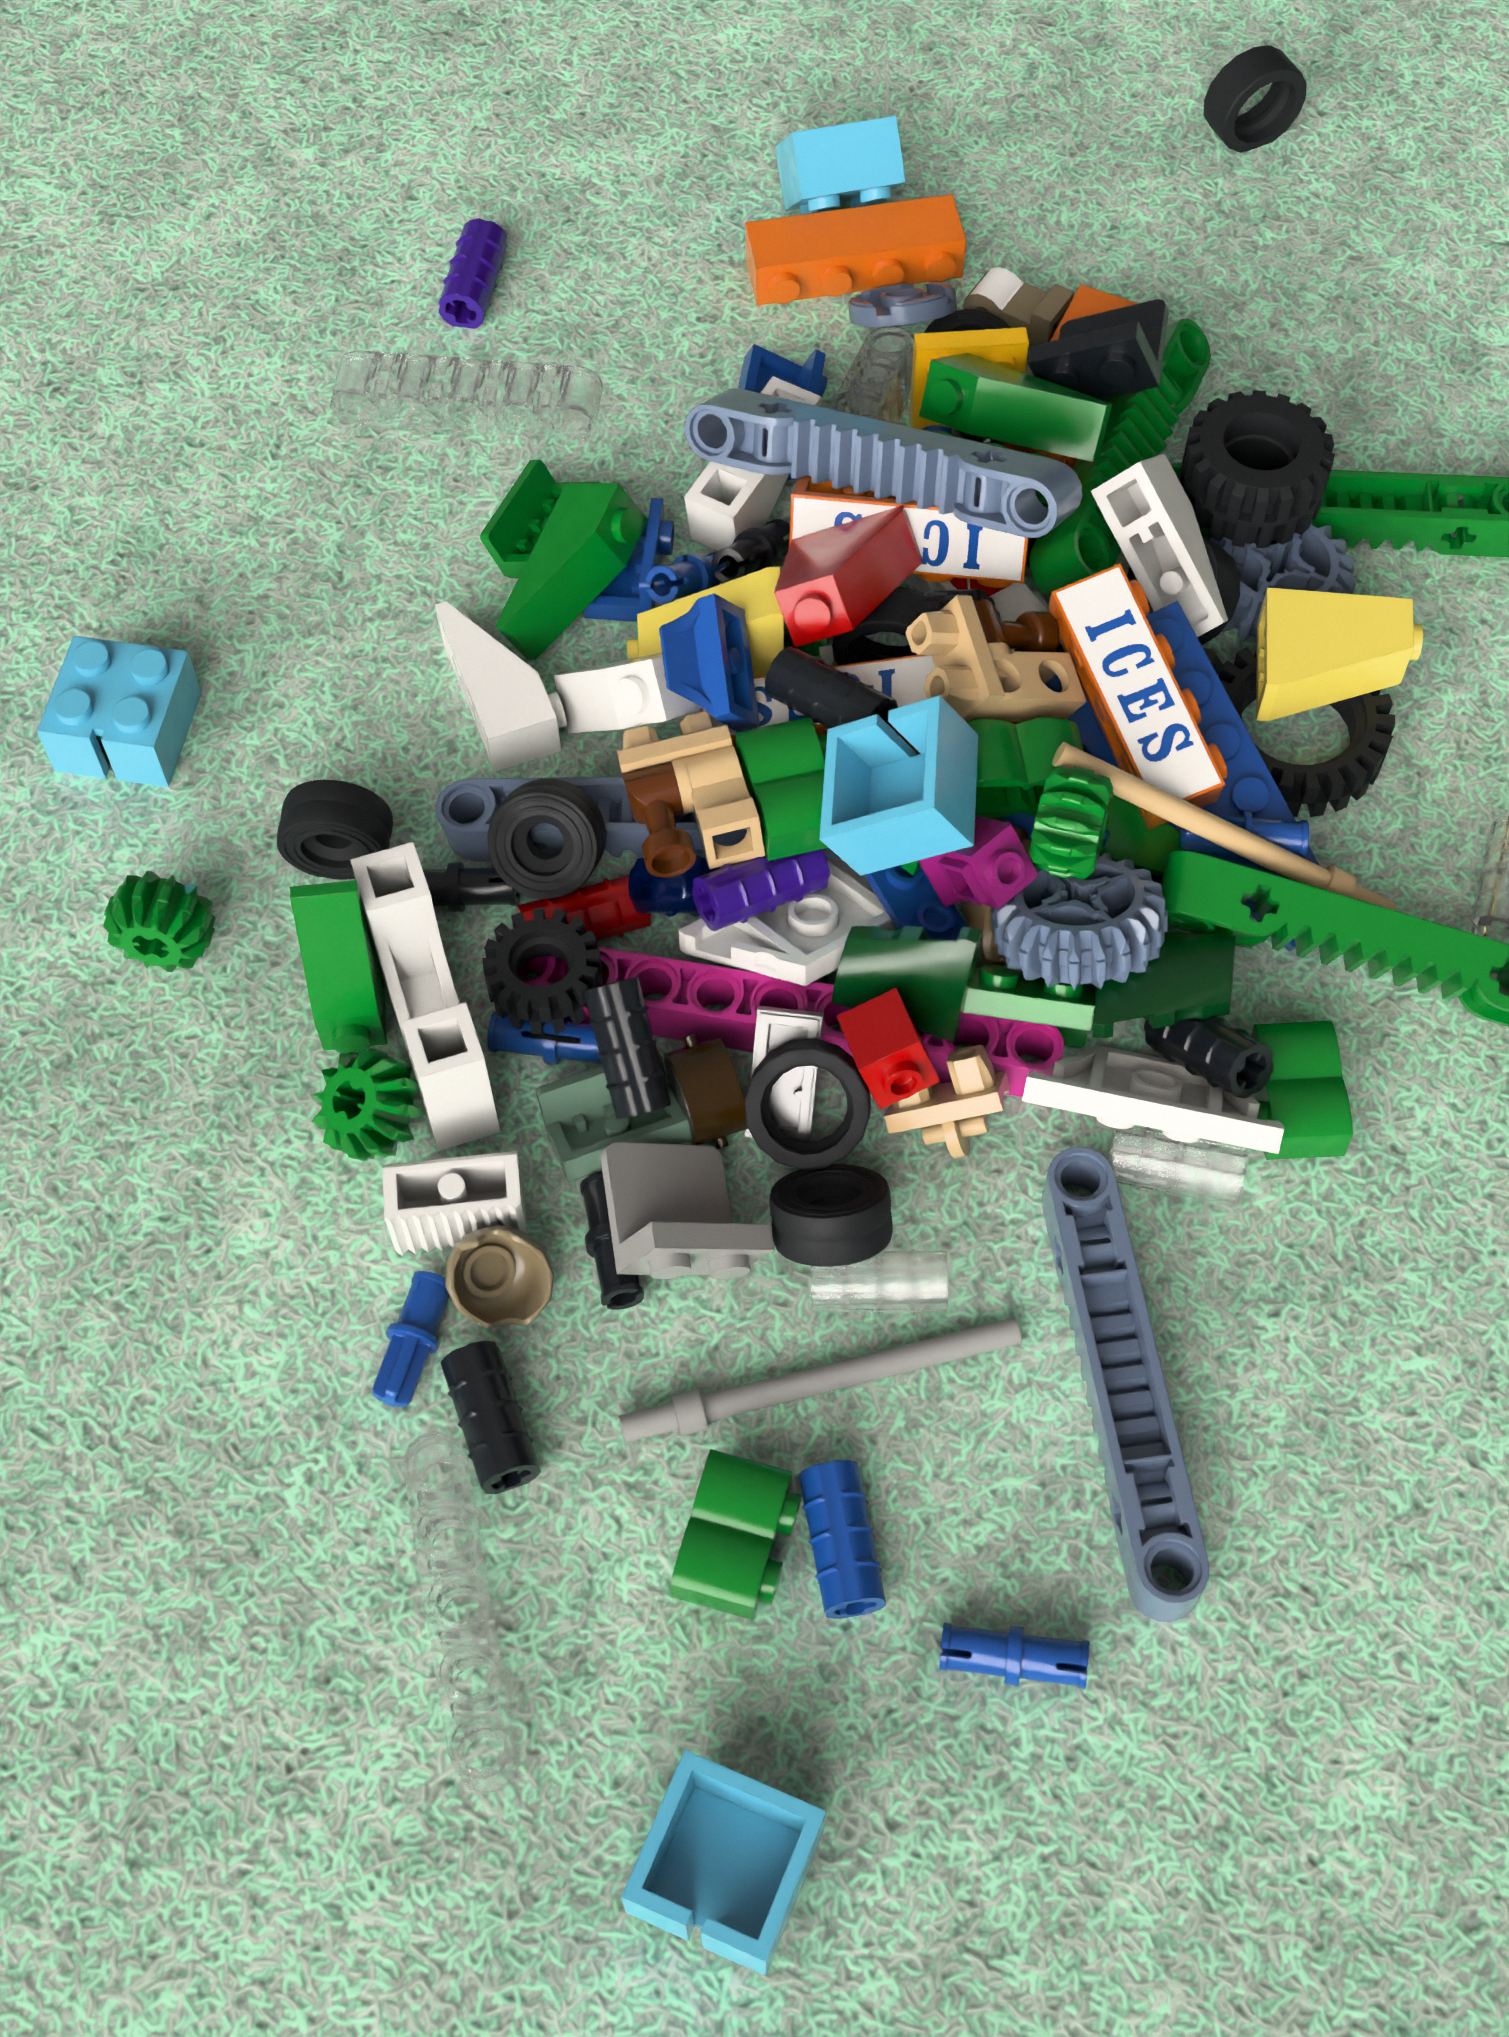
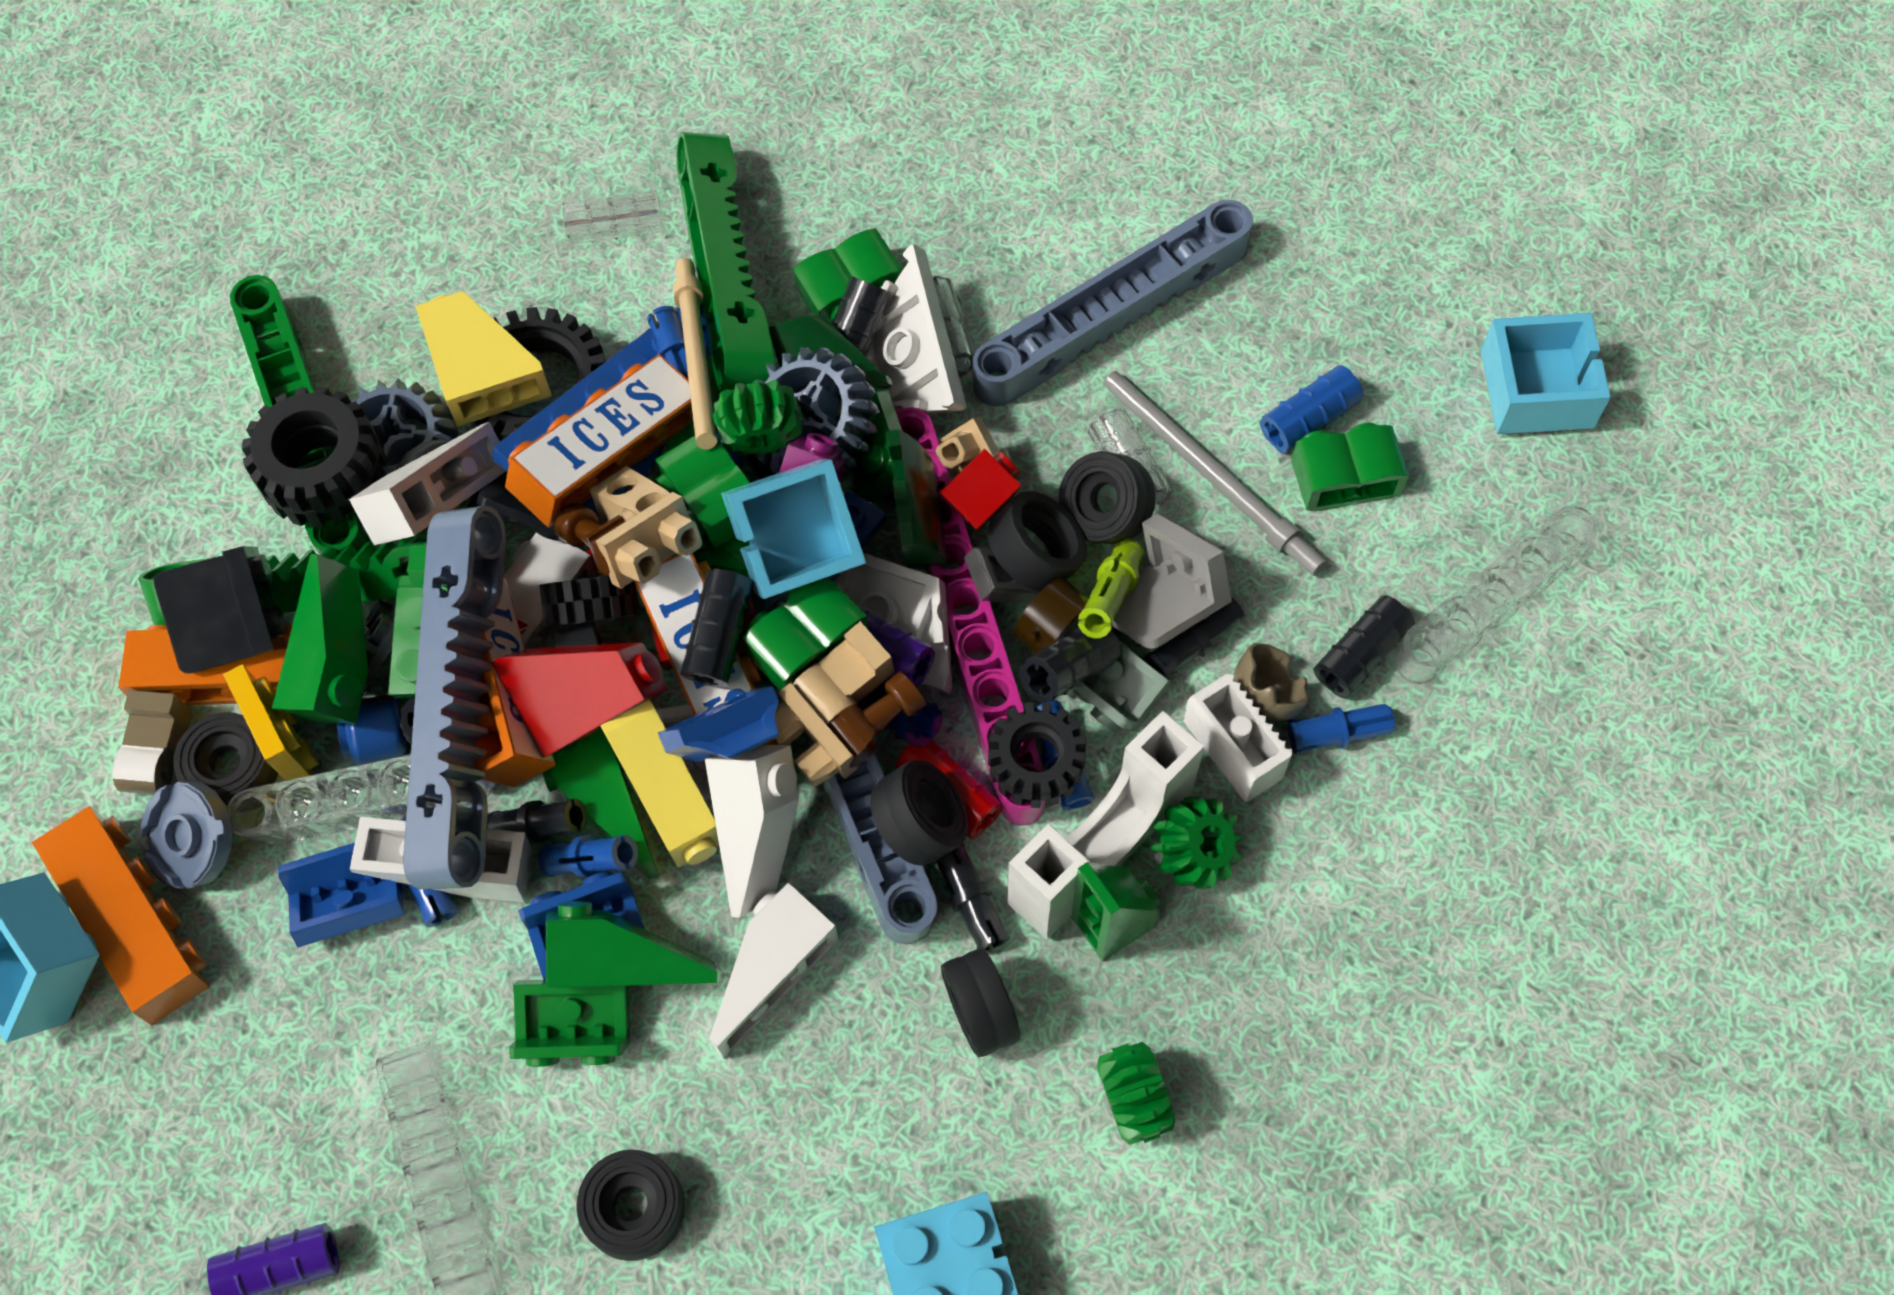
camera: 115 degrees left, 5 degrees up
(345, 489) = (598, 1199): none -> black tyre
(719, 1170) = (1116, 579): none -> lime pin
(1014, 1655) = (1321, 294): blue pin -> none

